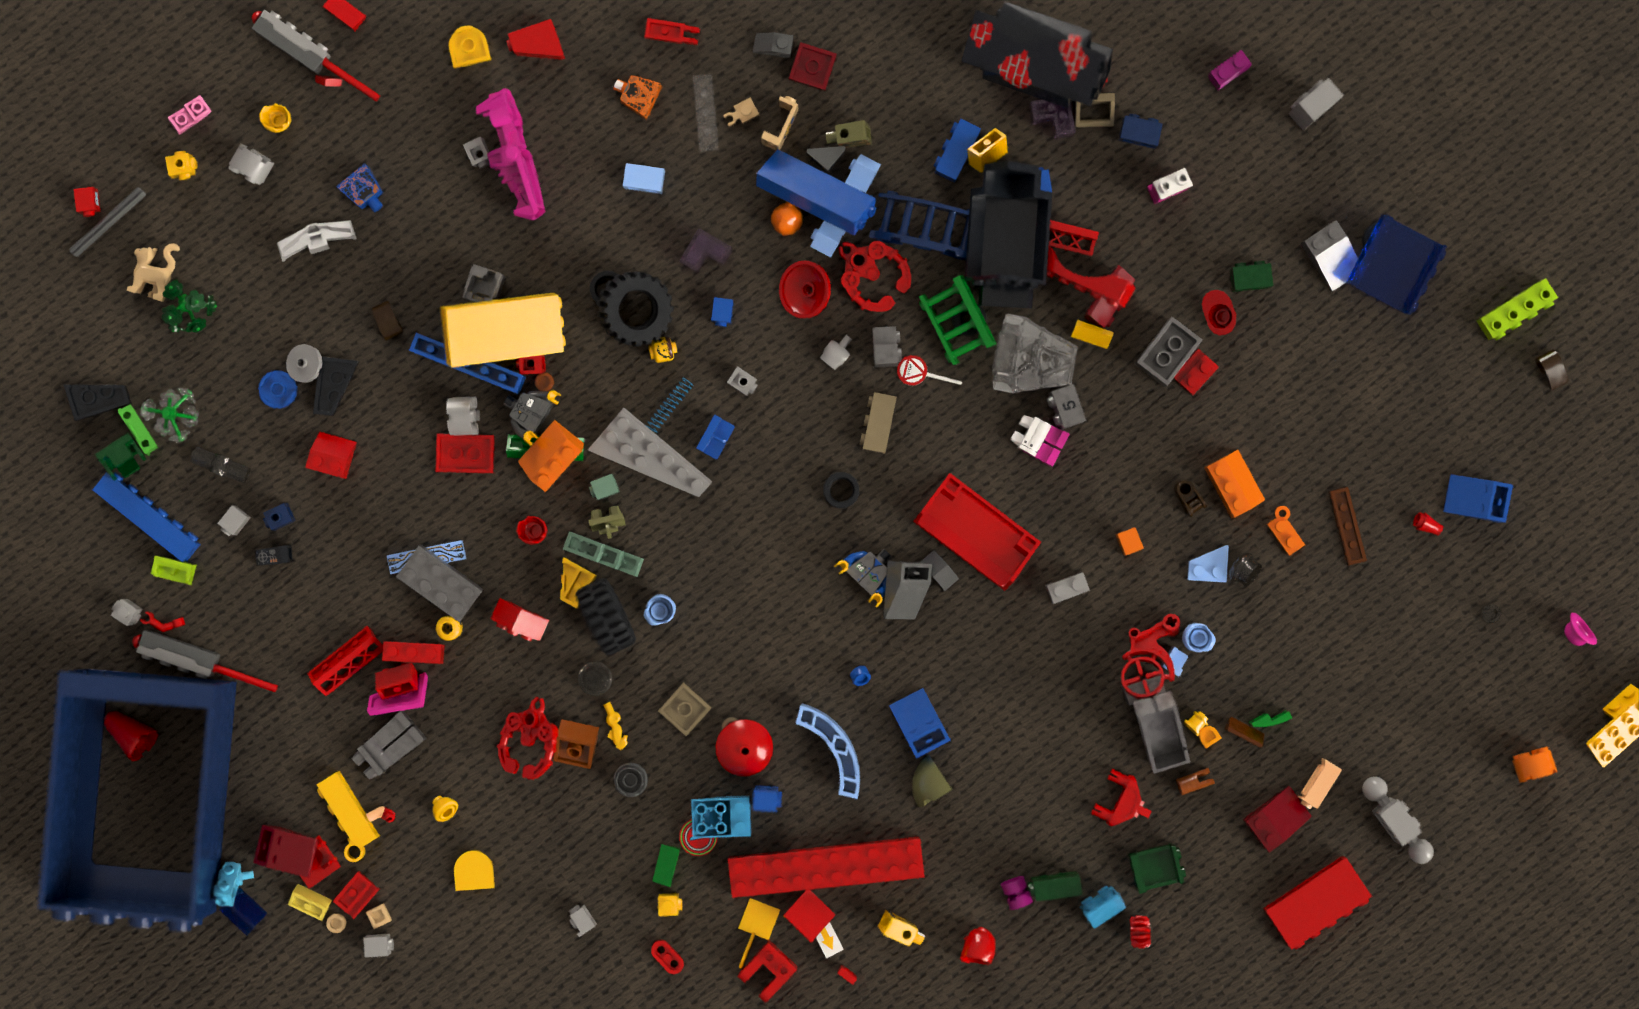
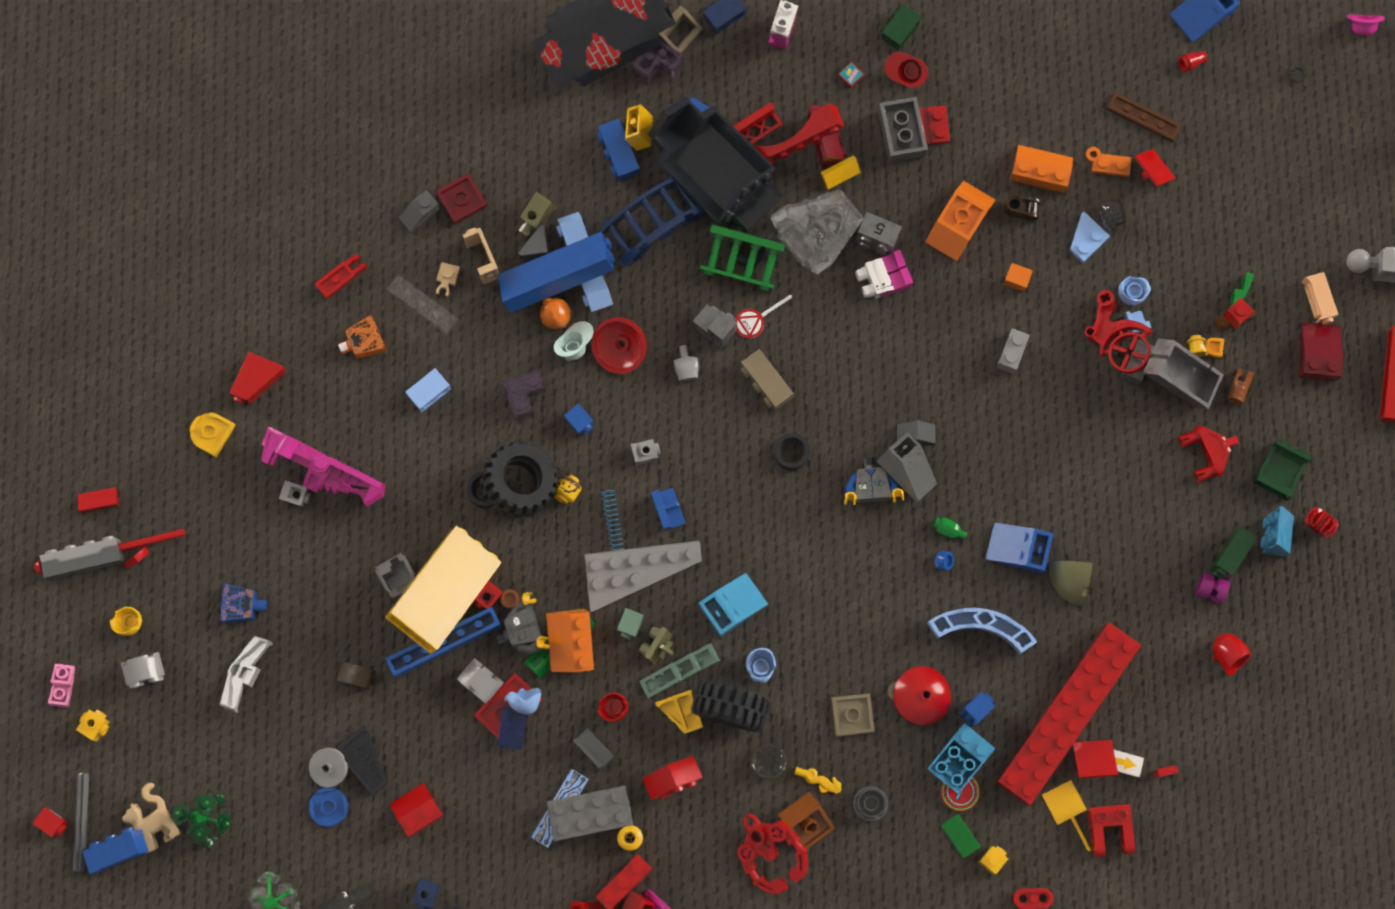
camera: 50 degrees left, 10 degrees down
(108, 266) = (115, 850): none -> blue brick
(451, 470) = (512, 729): none -> clear blue panel
(477, 461) = (524, 701): none -> light blue hair
(489, 543) = (593, 749): none -> dark grey panel
(686, 549) = (732, 604): none -> dark azure slope
(778, 252) = (574, 340): none -> light aqua piece
(869, 270) = (645, 289): red piece -> none
(887, 657) = (948, 528): none -> green plant
(894, 926) = (1165, 699): yellow torso -> none
(977, 532) = (912, 380): red slope -> none
(1135, 458) = (959, 220): none -> orange slope
(1178, 272) = (851, 75): none -> tile
(1247, 733) = (1238, 313): none -> red brick
(1311, 570) = (1154, 168): none -> red piece

